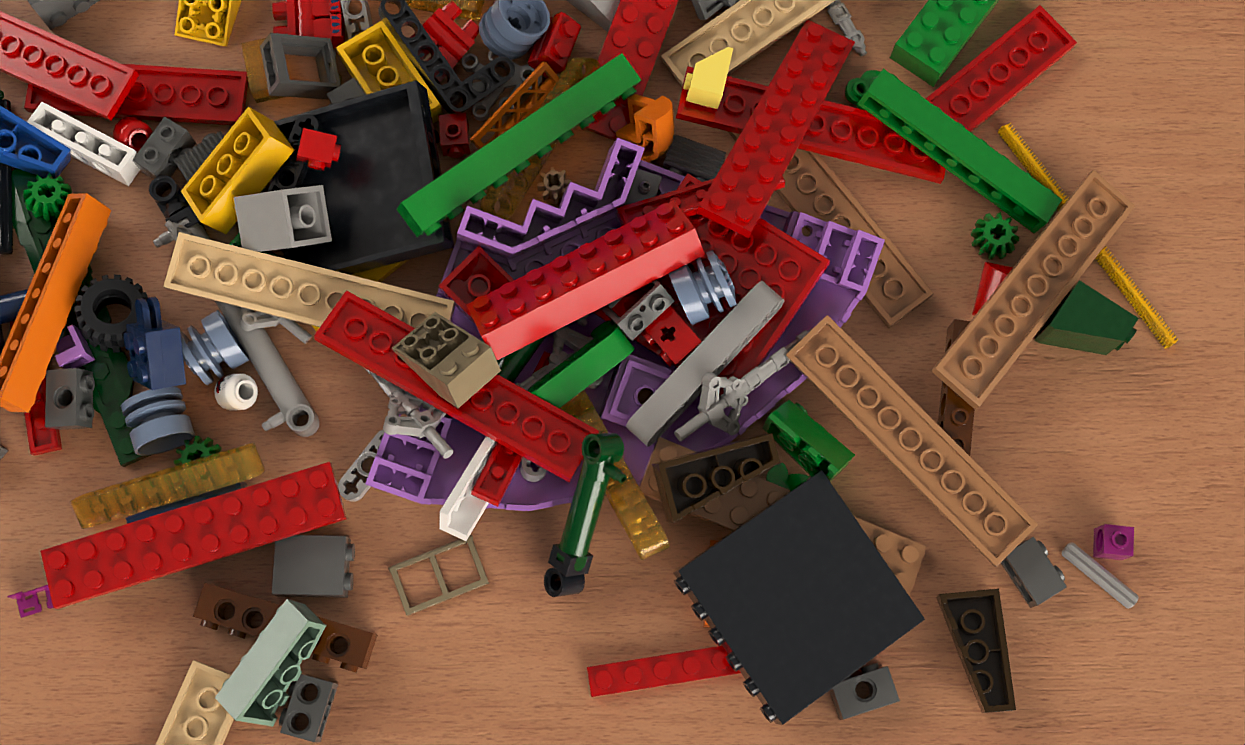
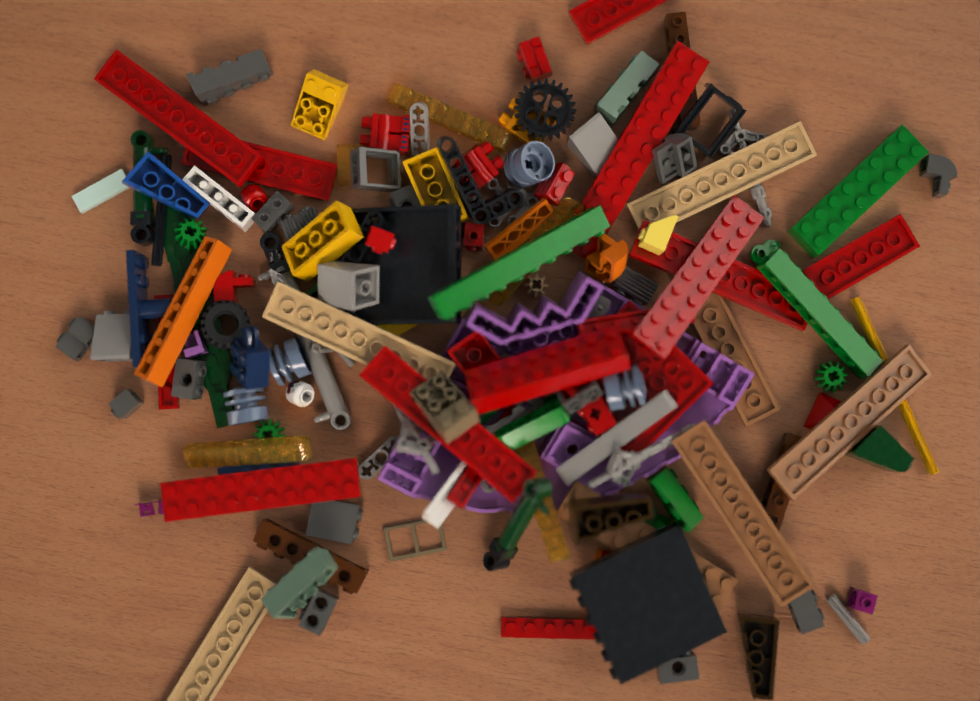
camera: 10 degrees right, 10 degrees up
(113, 256) = (227, 284): none -> red brick

